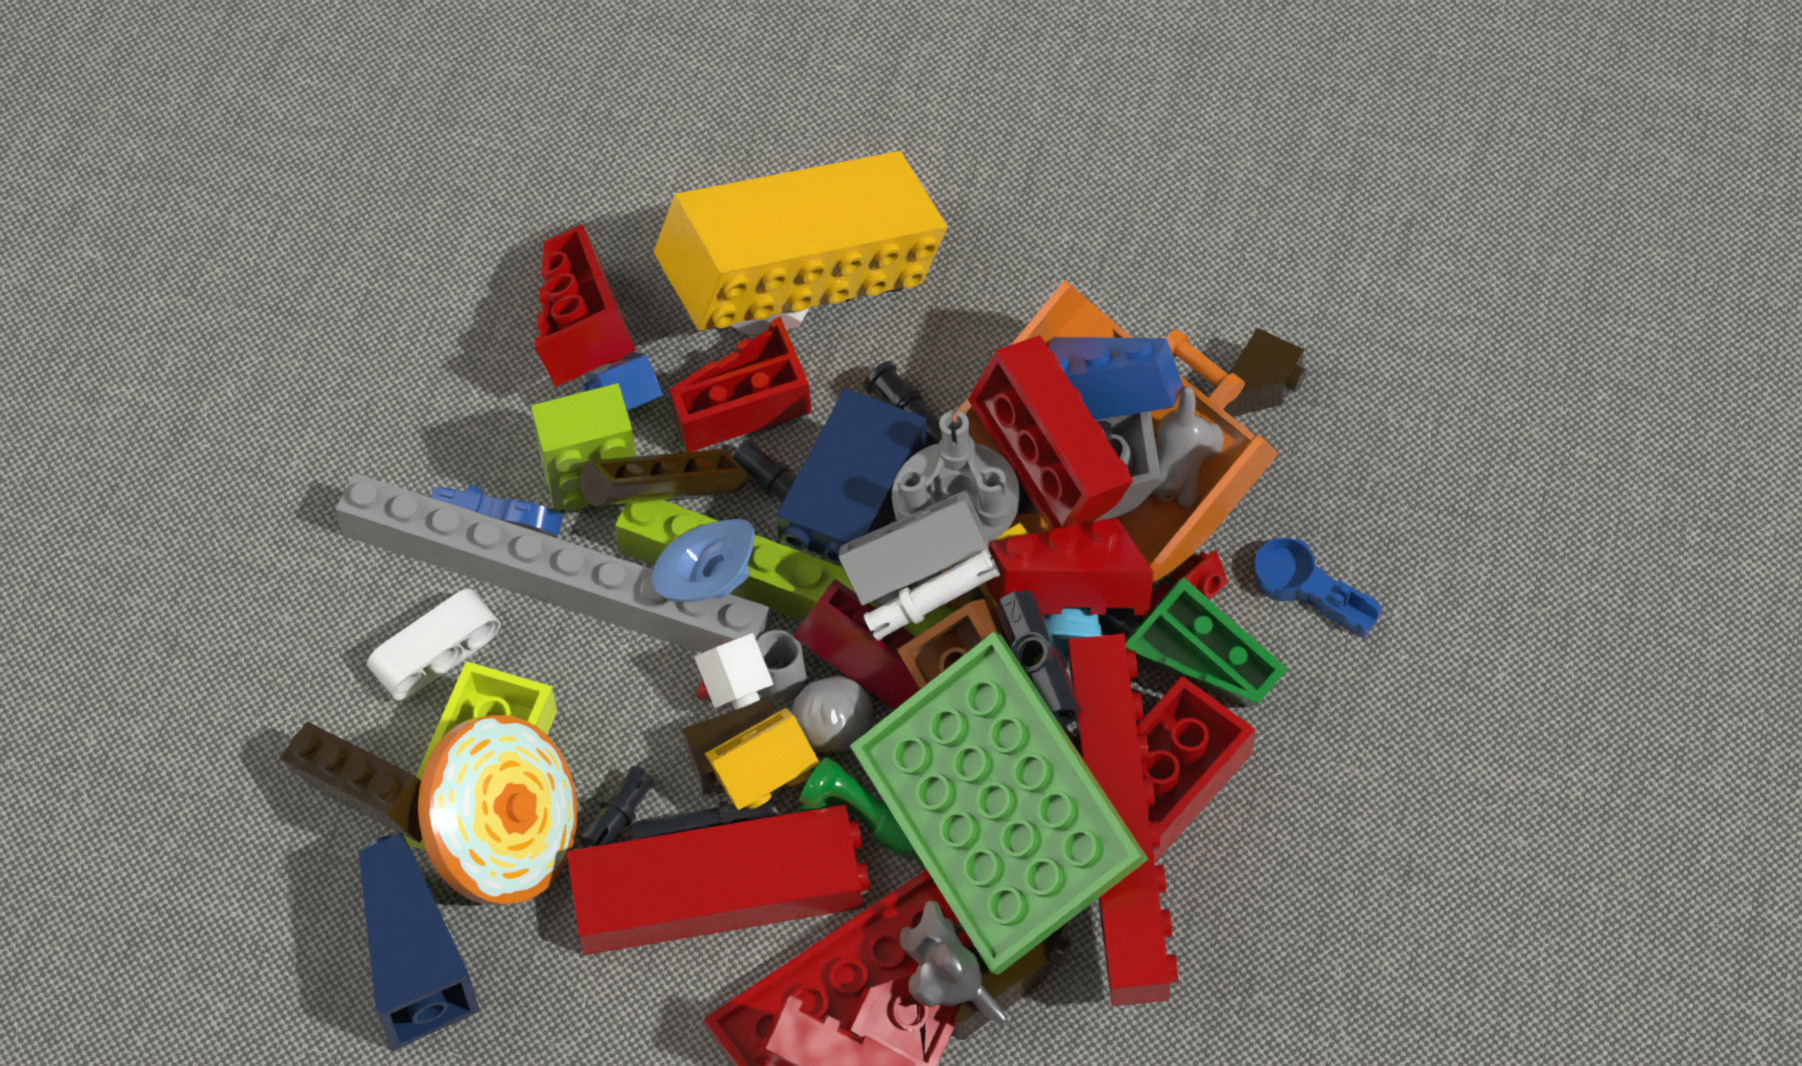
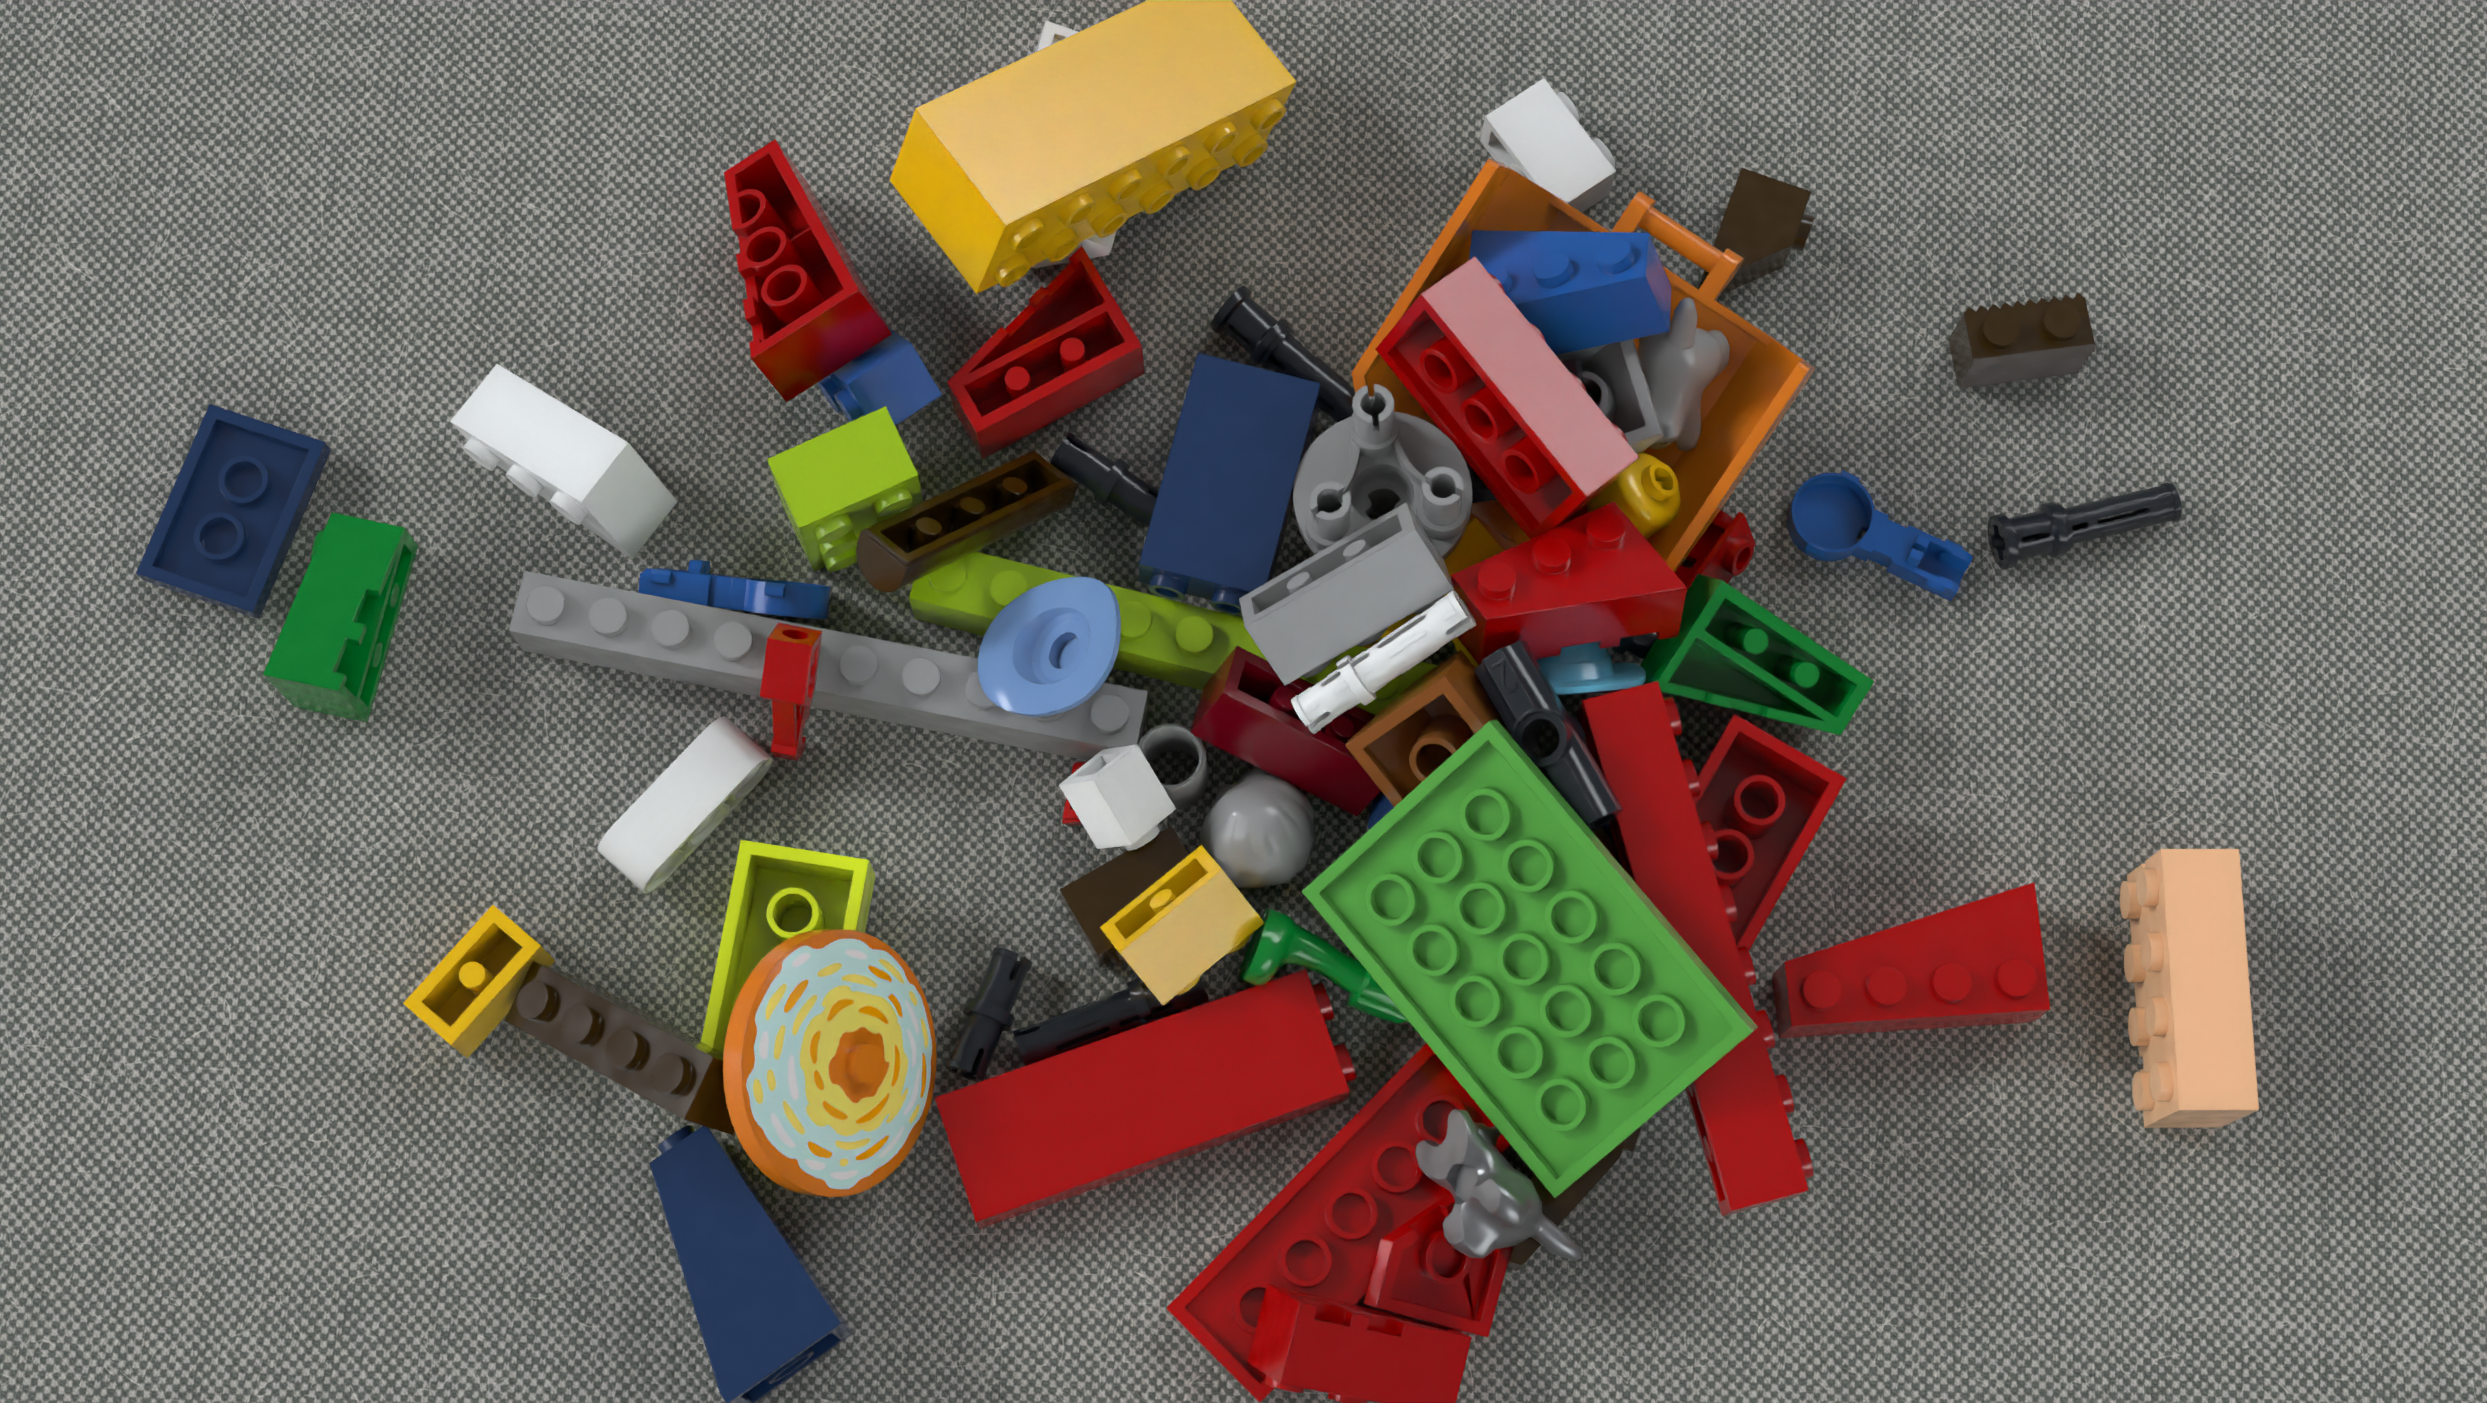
camera: 15 degrees left, 15 degrees up
(165, 417) = (233, 511): none -> dark blue plate
(224, 492) = (343, 617): none -> green wedge
(262, 732) = (477, 981): none -> yellow brick
(398, 412) = (565, 459): none -> white wedge
(520, 564) = (790, 684): none -> red piece
(1125, 297) = (1545, 143): none -> white brick
(1145, 523) = (1645, 494): none -> yellow head
(1290, 876) = (1931, 973): none -> red wedge
(1441, 468) = (2021, 341): none -> dark brown brick
(1443, 595) = (2051, 529): none -> black pin
(1482, 909) = (2190, 989): none -> light nougat piece

